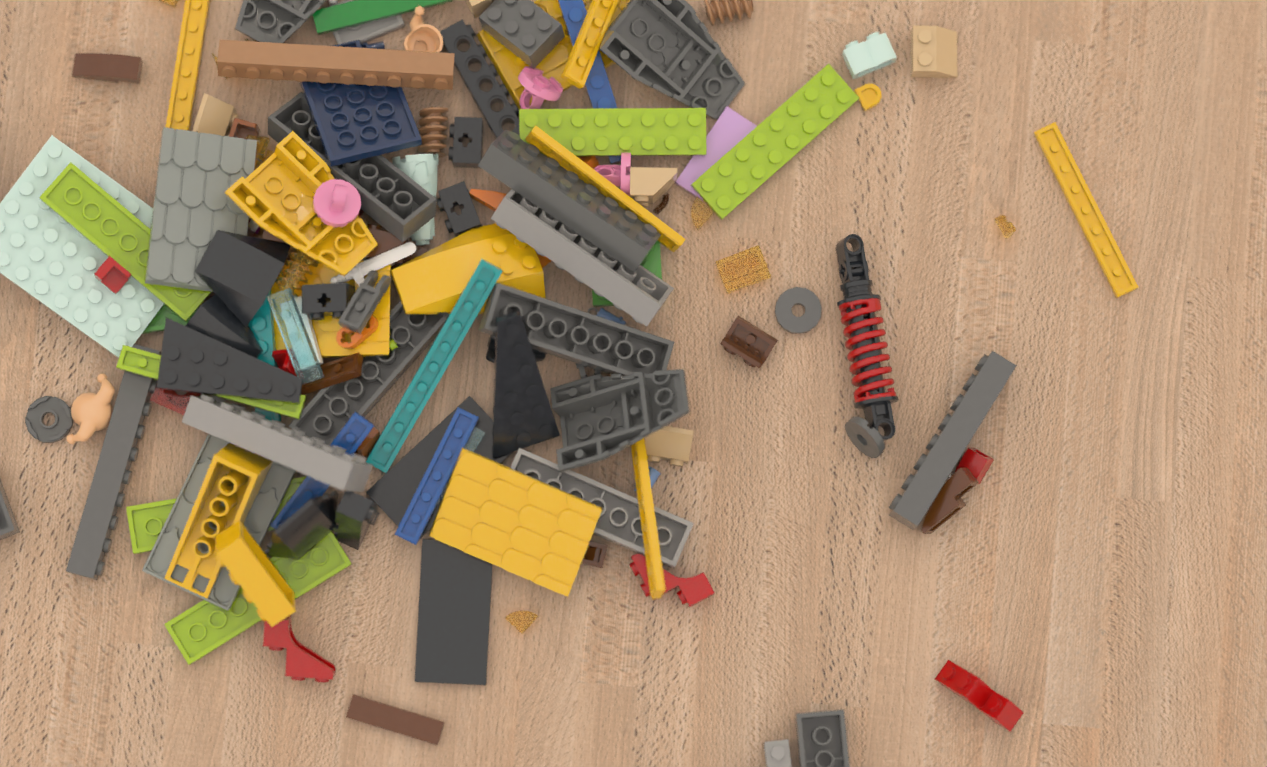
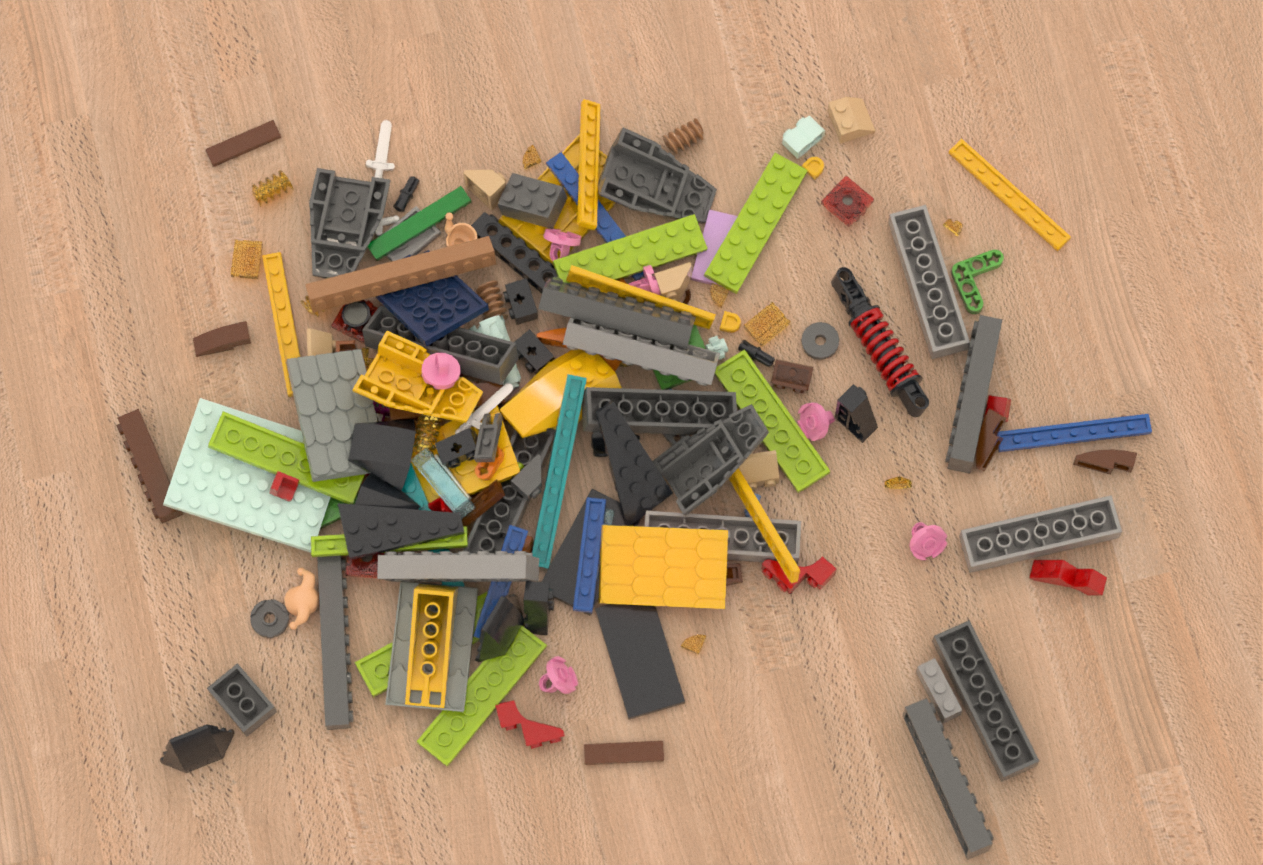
camera: 15 degrees left, 10 degrees down
(254, 573) = (482, 675): yellow piece -> none
(267, 96) = (353, 319): none -> piece
(353, 607) = (561, 676): none -> bright pink tile
(397, 365) = (528, 480): none -> dark grey slope
(674, 277) = (717, 345): none -> light aqua gear
(702, 251) = (730, 322): none -> yellow tile
(708, 389) = (793, 449): none -> lime plate
(718, 300) = (756, 353): none -> black axle
(754, 407) = (814, 420): none -> bright pink tile
(805, 417) = (855, 413): none -> black wedge
(824, 513) = (898, 483): none -> clear yellow tile
(831, 596) = (927, 541): none -> bright pink tile
(864, 438) = (906, 414): dark grey tile -> none
(891, 154) = (847, 201): none -> clear red piece
(949, 285) = (928, 282): none -> light grey brick
(966, 634) = (1040, 534): none -> light grey brick
(1005, 289) = (969, 272): none -> bright green beam
(1053, 526) = (1075, 432): none -> blue plate
(1077, 572) = (1106, 460): none -> reddish brown slope

